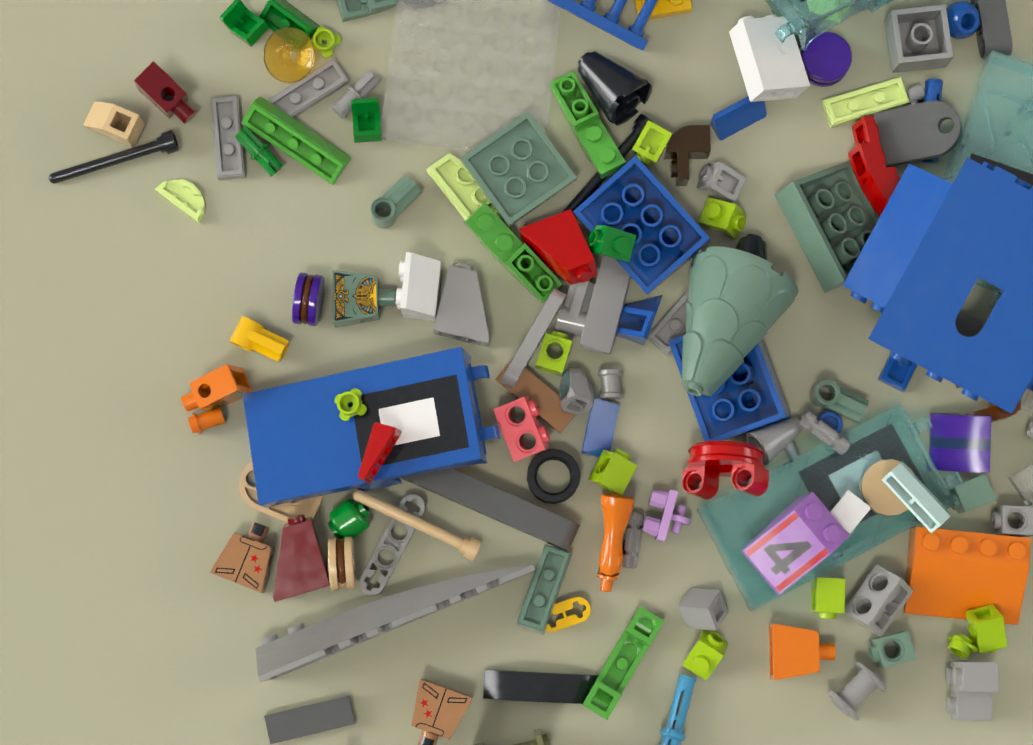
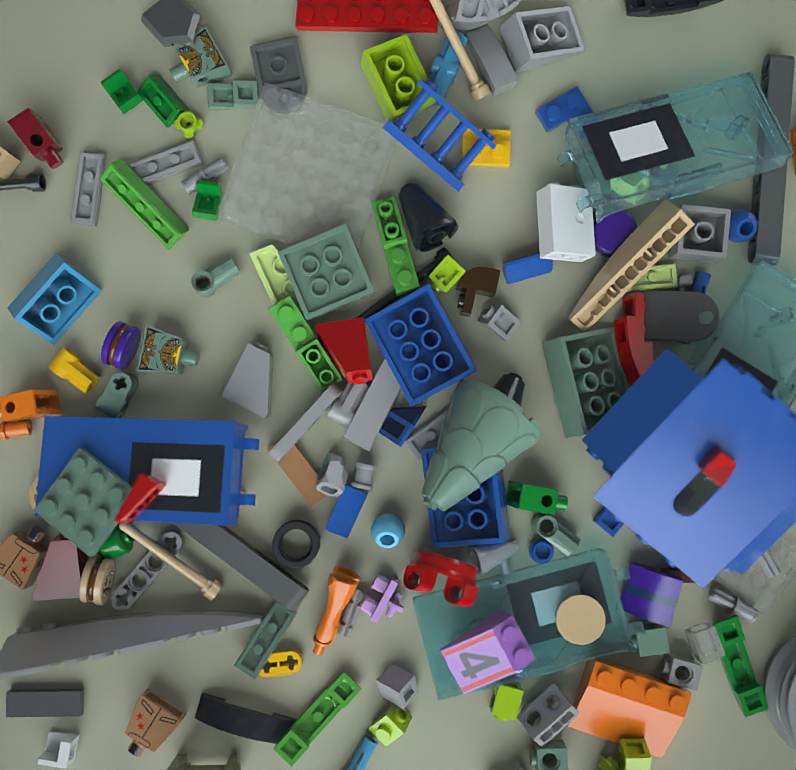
camera: 10 degrees right, 5 degrees up
(184, 196) = (40, 232): yellowish green tile -> none
(219, 265) = (54, 299): none -> dark azure slope
(258, 151) = (110, 207): green axle -> none
(278, 51) = (146, 128): clear yellow dish -> none
(312, 361) = (115, 398): none -> sand green piece
(315, 472) = (84, 502): none -> sand green plate
(342, 401) = (122, 446): lime plate -> none
(420, 287) = (217, 355): white slope -> none
(514, 430) = (270, 497): coral brick -> none
(550, 365) = (311, 443): lime brick -> none
(612, 242) = (390, 356): green bracket -> none
(613, 471) = (347, 552): lime brick -> none
(652, 437) = (387, 530): none -> medium azure piece
(723, 217) = (493, 352): lime bracket -> none
(796, 651) = (467, 741): orange torso -> none
(806, 364) = (535, 498): none -> green torso
(825, 432) = (536, 560): light grey axle -> none
(850, 86) = (631, 262): none -> tan slope
(850, 511) = (540, 635): white panel -> none
(916, 497) = (602, 638): light aqua piece -> none
(991, 272) = (717, 466): none -> red slope

